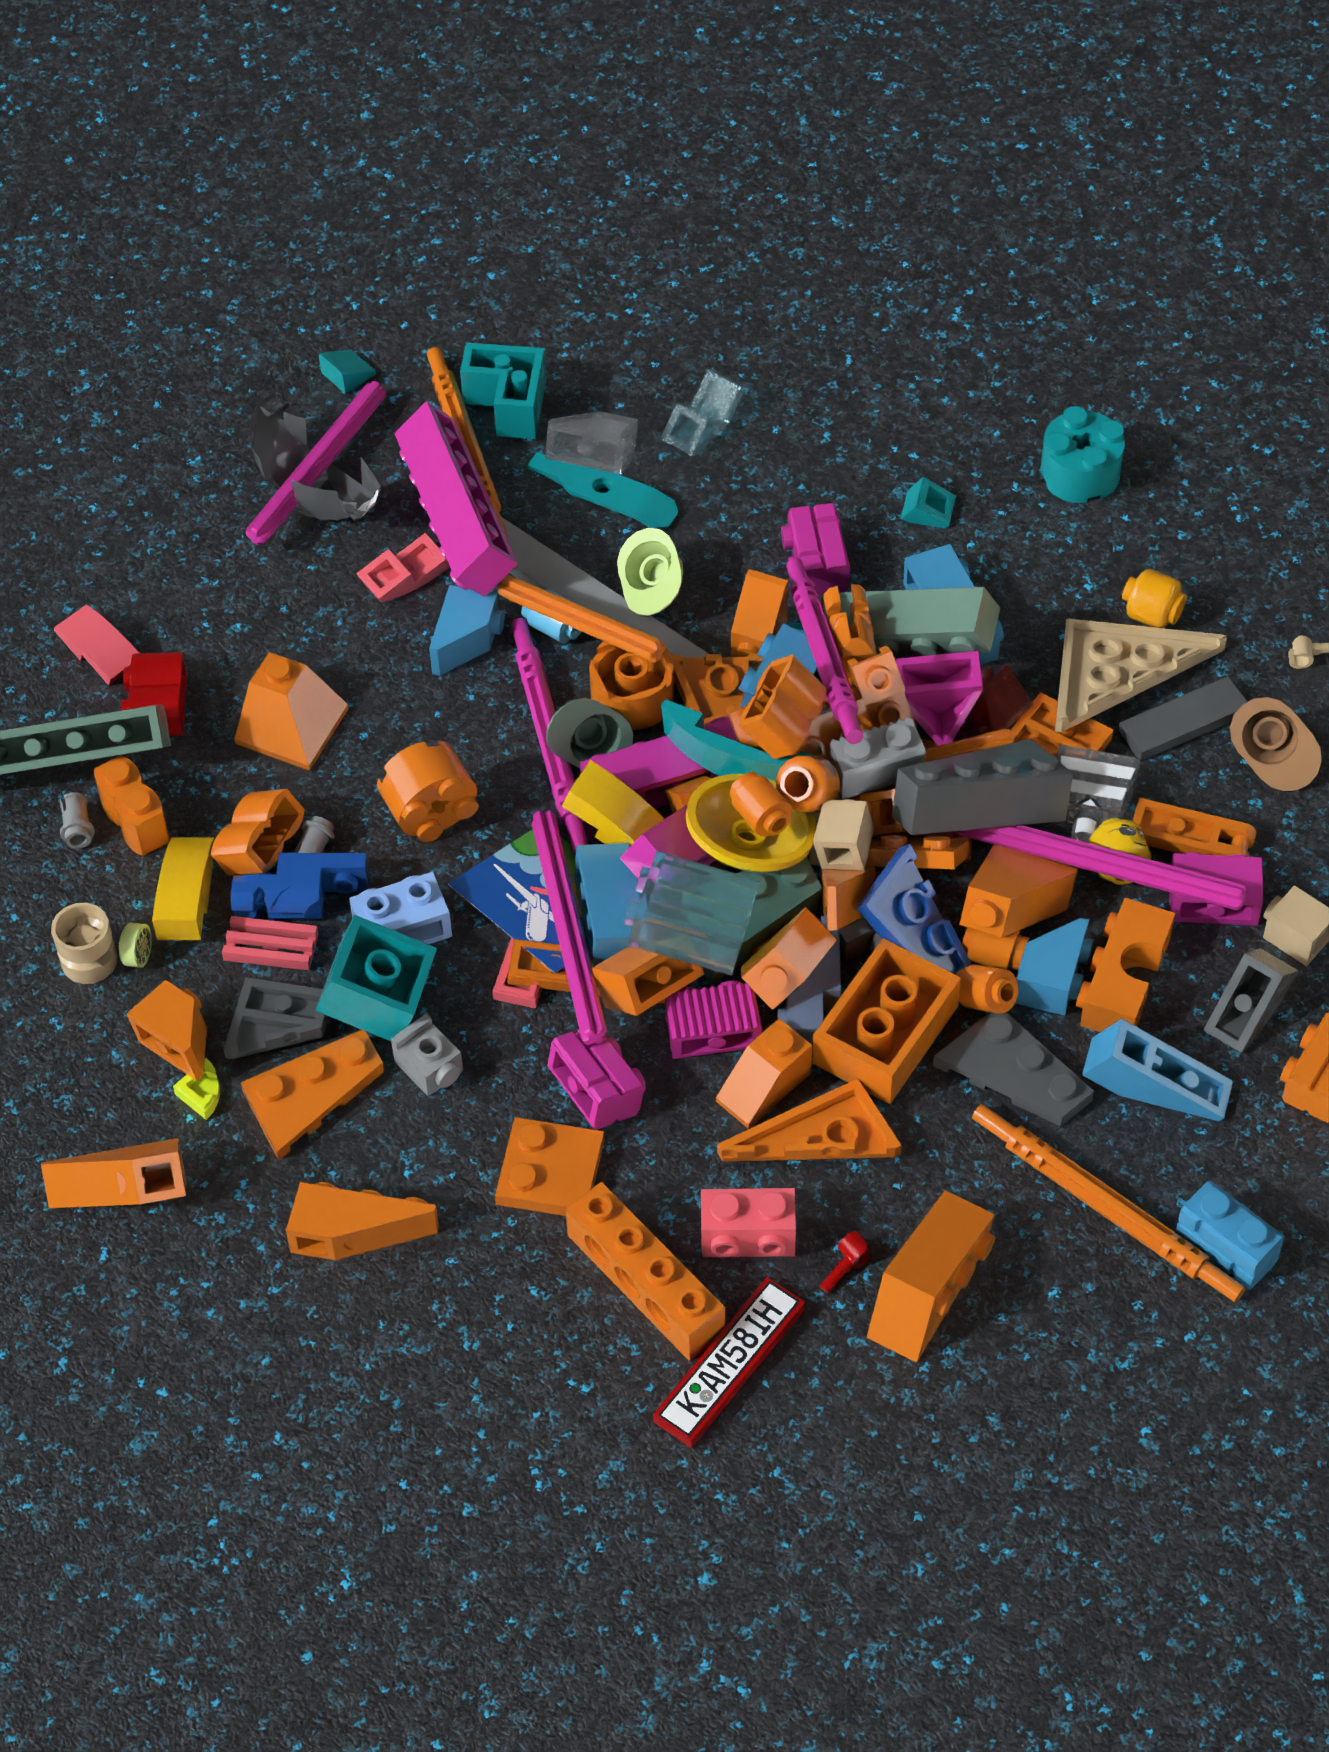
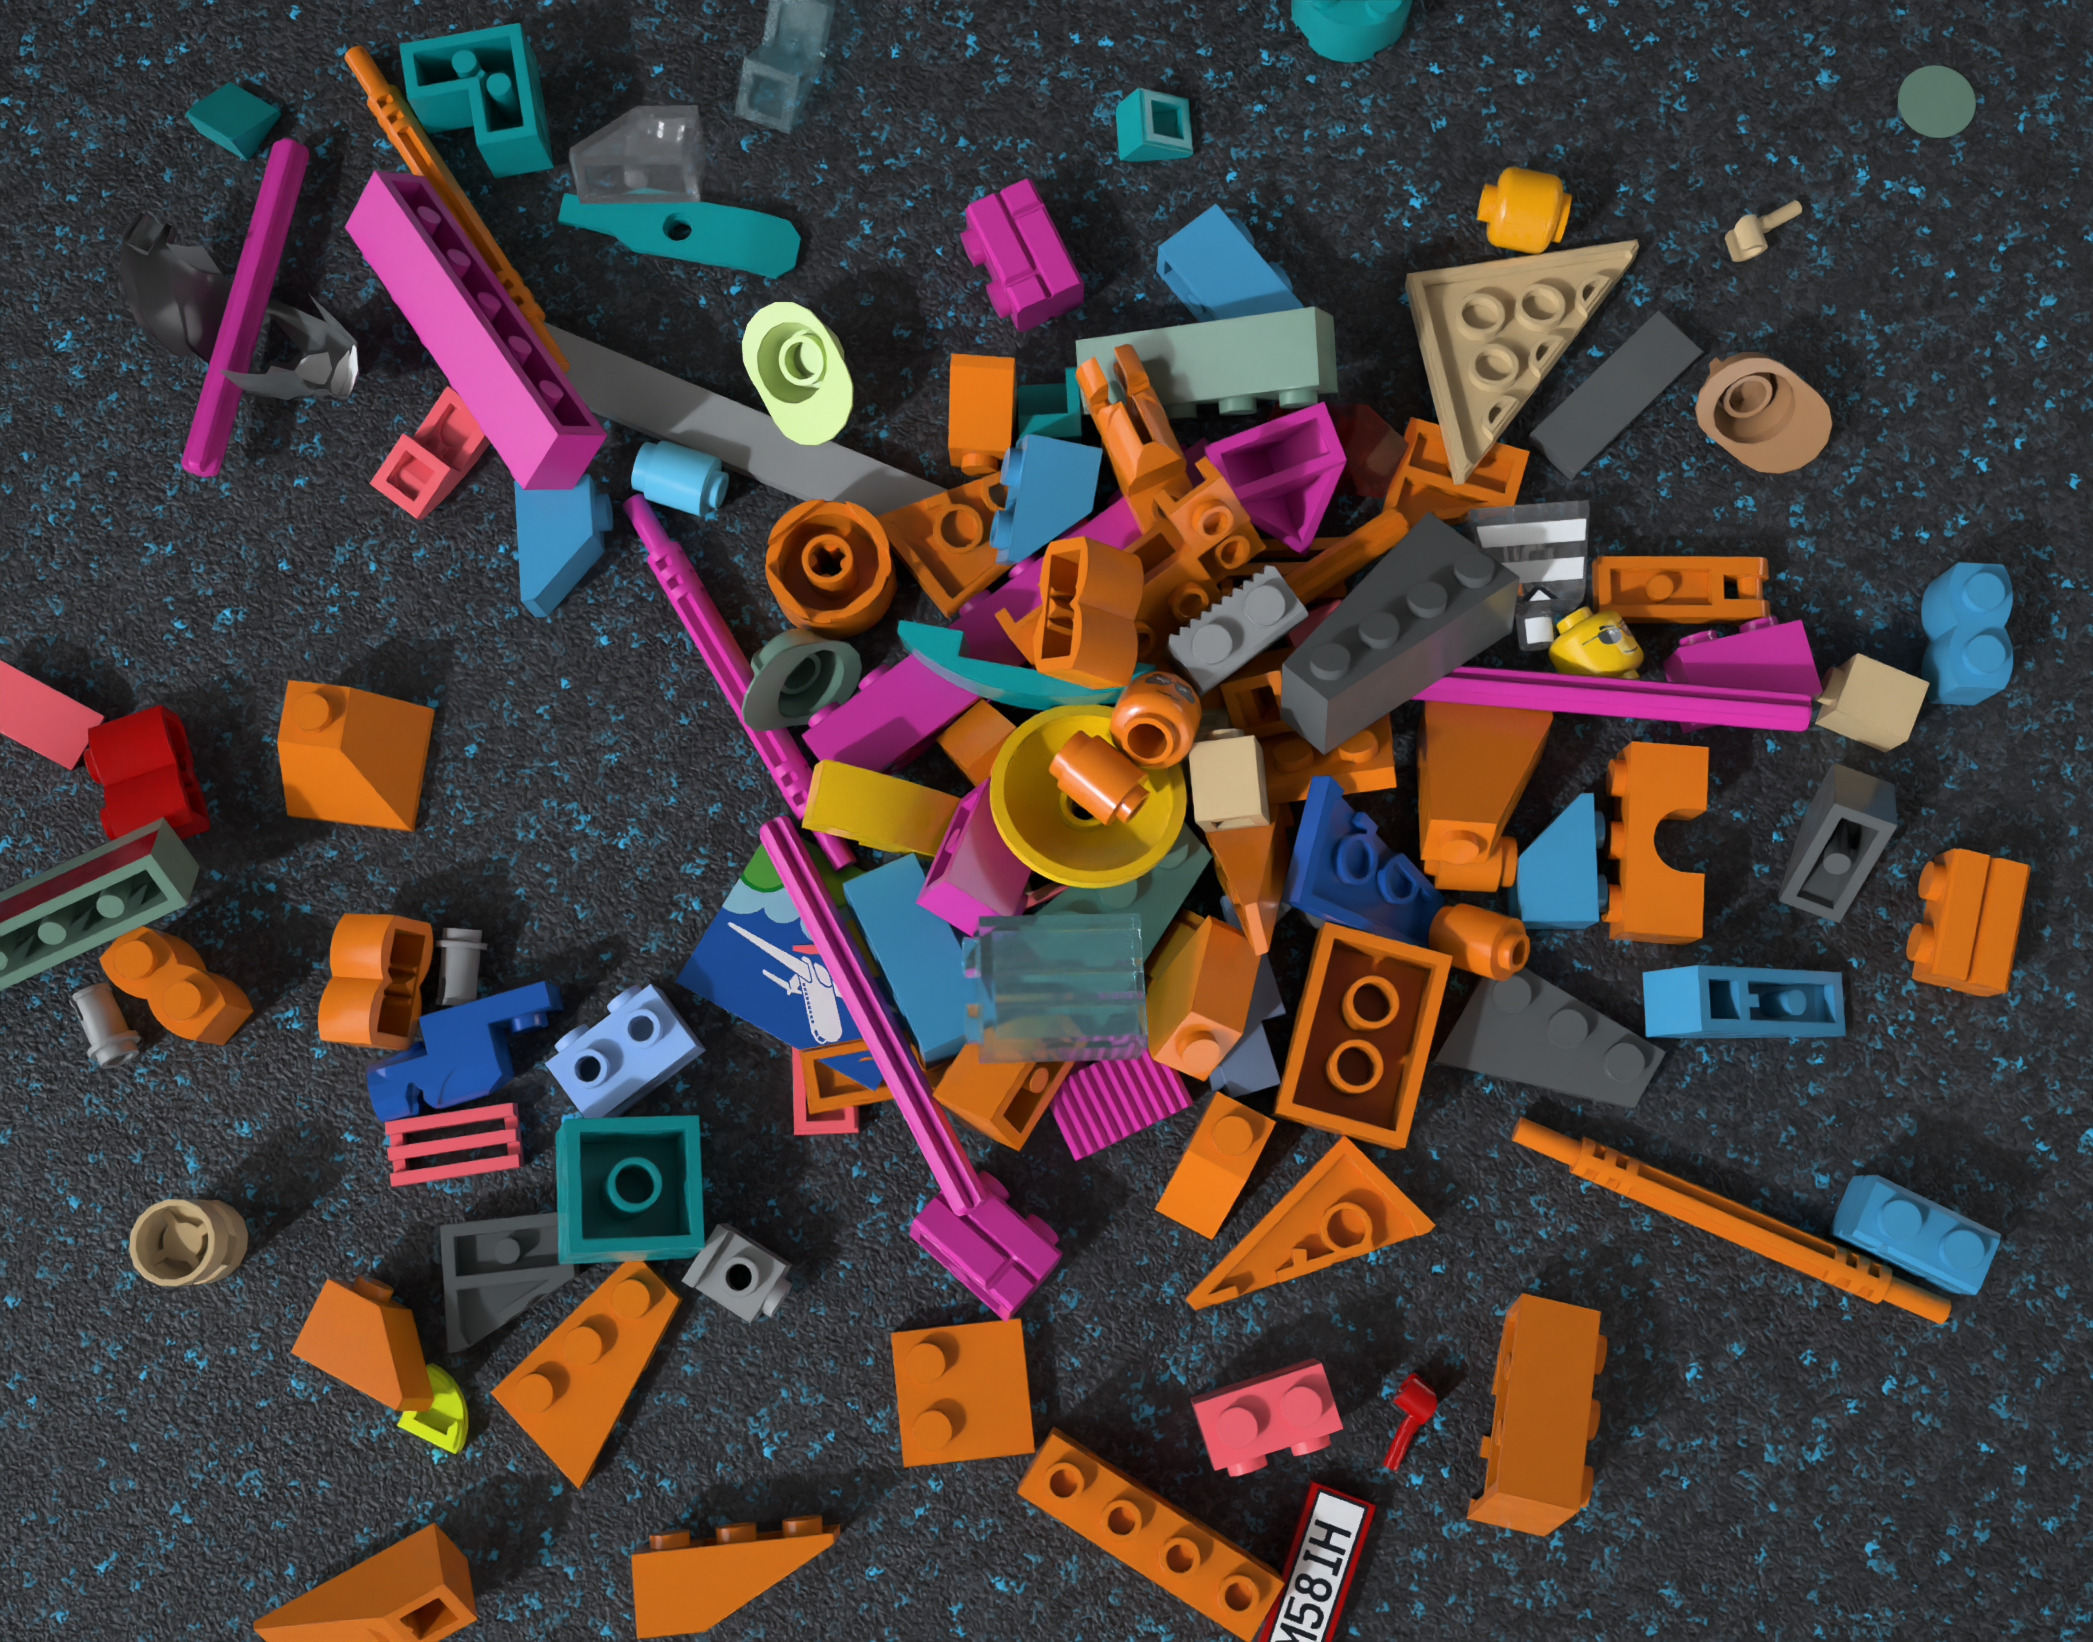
camera: 15 degrees left, 25 degrees up
(135, 945) = (263, 1213): yellowish green tile -> none
(183, 889) = (298, 1096): yellow slope -> none
(428, 790) = (598, 846): orange brick -> none
(581, 618) = (731, 499): orange axle -> none
(824, 651) = (1110, 477): dark pink axle -> none

